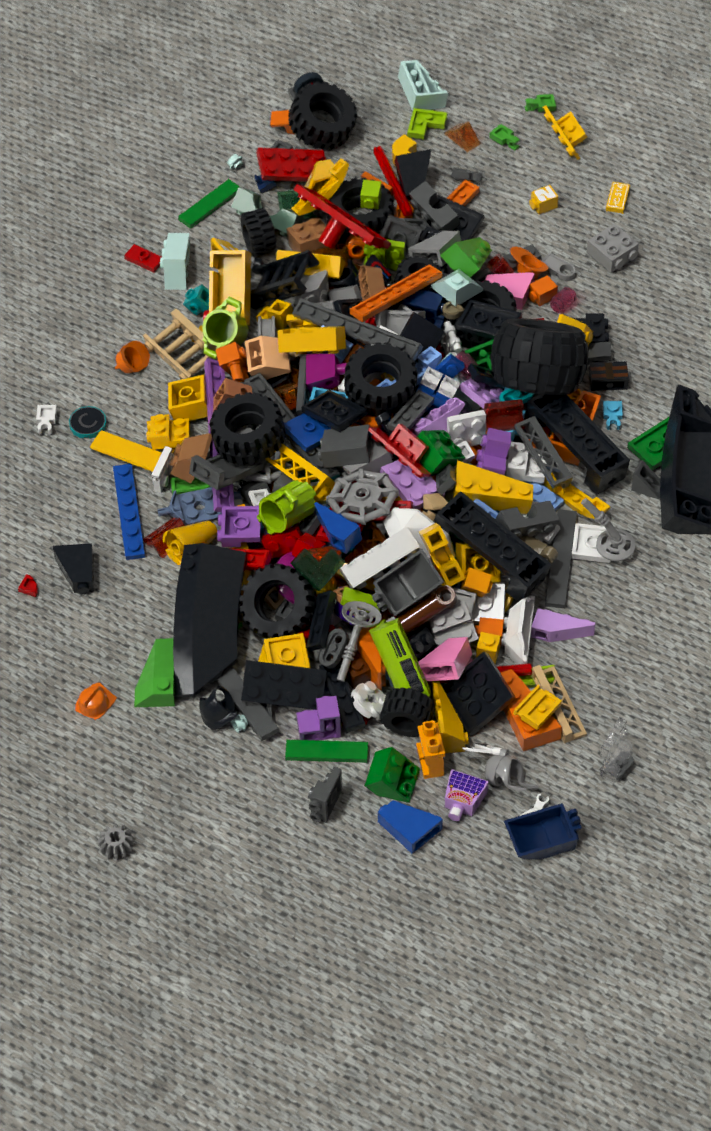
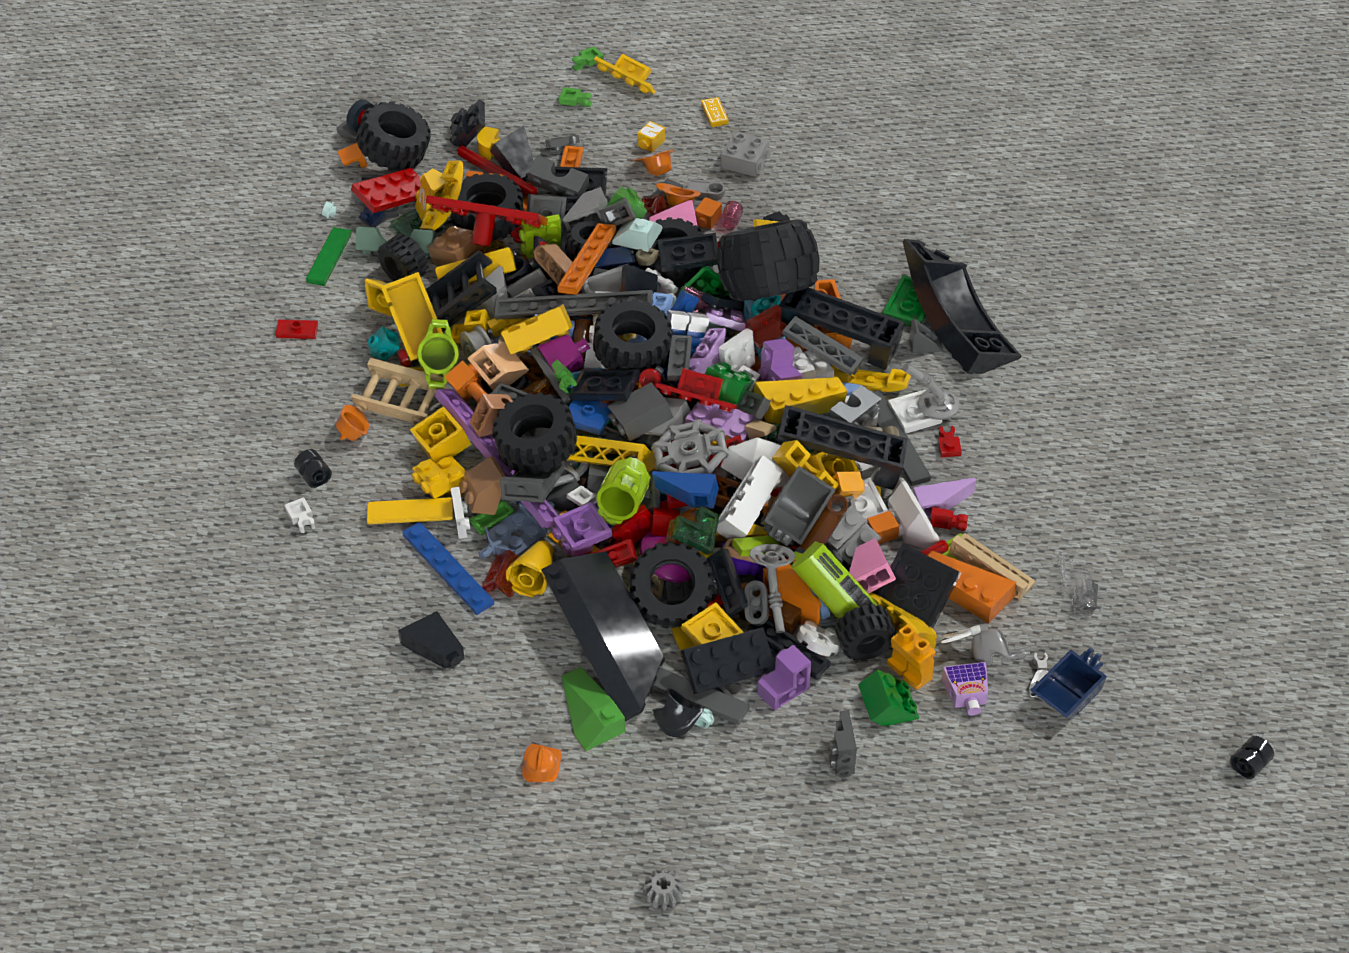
camera: 30 degrees left, 5 degrees down
(28, 586) = (394, 682): red tile -> none
(77, 383) = (312, 468): none -> black wheel
(87, 422) = (346, 501): black tile -> none
(175, 260) = (335, 317): light aqua wedge -> none
(309, 389) = (563, 375): none -> bright green plate
(326, 751) = (806, 706): green tile -> none
(355, 246) = (508, 235): orange head -> none
(370, 194) = (496, 184): lime brick -> none
(372, 419) = (649, 376): none -> red tile
(393, 127) = (467, 124): none -> black plate
(409, 824) = (936, 737): blue slope -> none
(420, 88) = (465, 82): light aqua wedge -> none
(425, 118) = (493, 107): lime plate -> none
(450, 261) = (617, 212): none -> dark grey slope
(463, 136) = (534, 109): clear orange slope -> none
(490, 644) = (891, 541): yellow brick -> none
(532, 227) = (658, 163): none -> orange piece
(537, 707) = (986, 572): yellow plate -> none
(548, 647) = (945, 519): none -> red plate
(602, 584) = (948, 444): none -> red plate
(608, 376) = (830, 261): black brick -> none
(612, 412) = (849, 292): medium azure plate -> none
(652, 962) = (1252, 757): none -> black wheel

